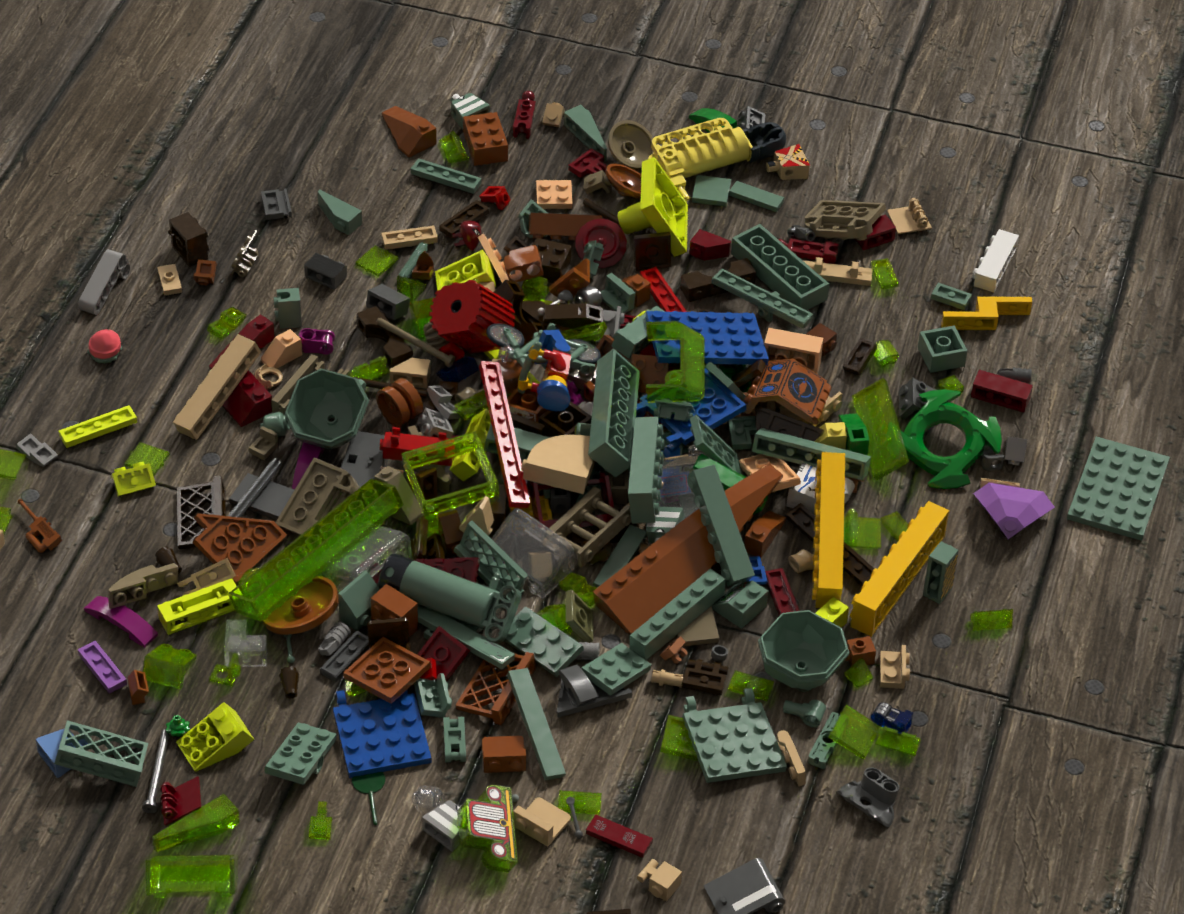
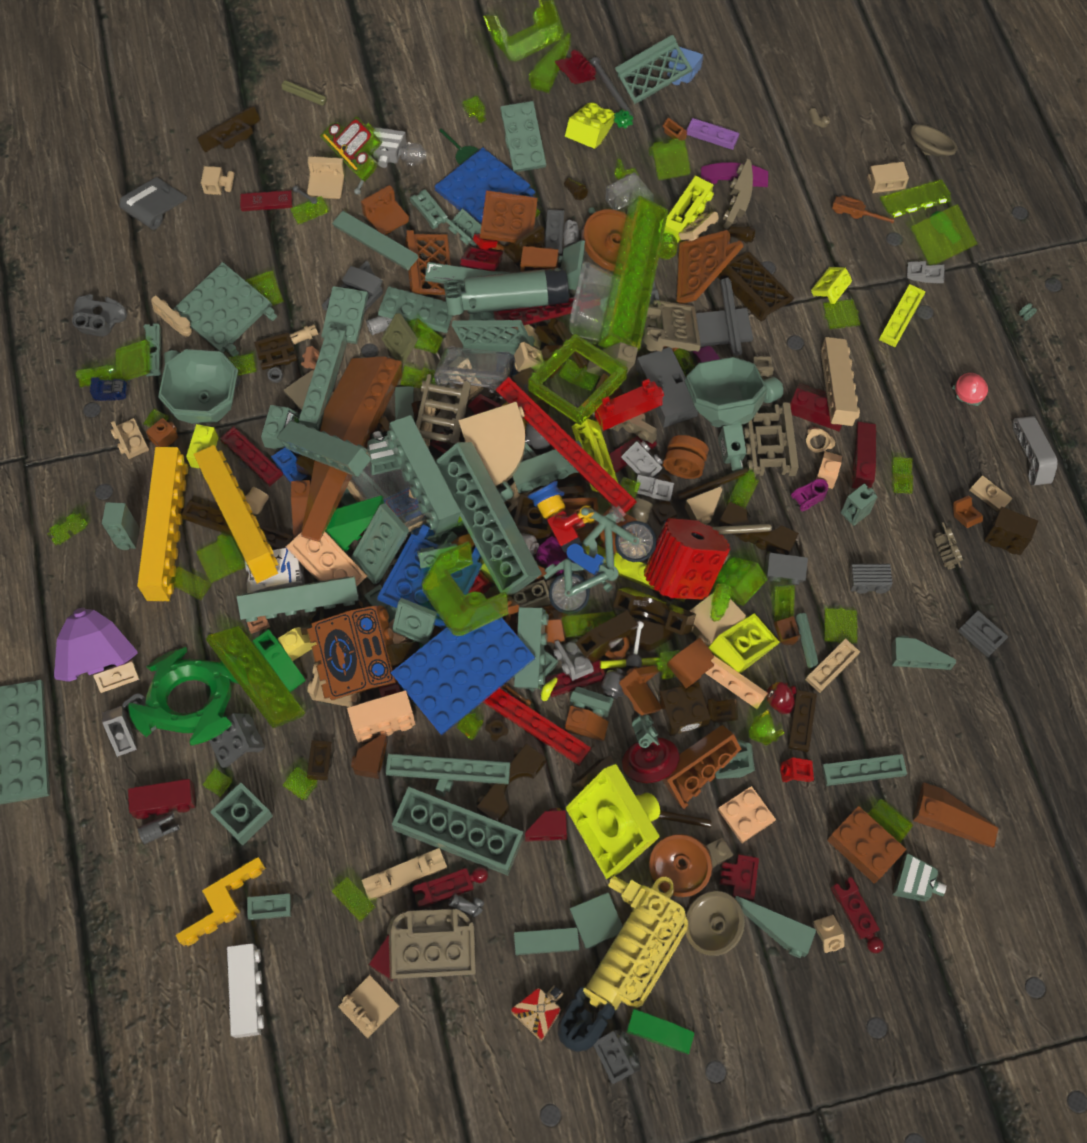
camera: 150 degrees right, 20 degrees up
(499, 223) = (763, 729): none -> clear neon green helmet

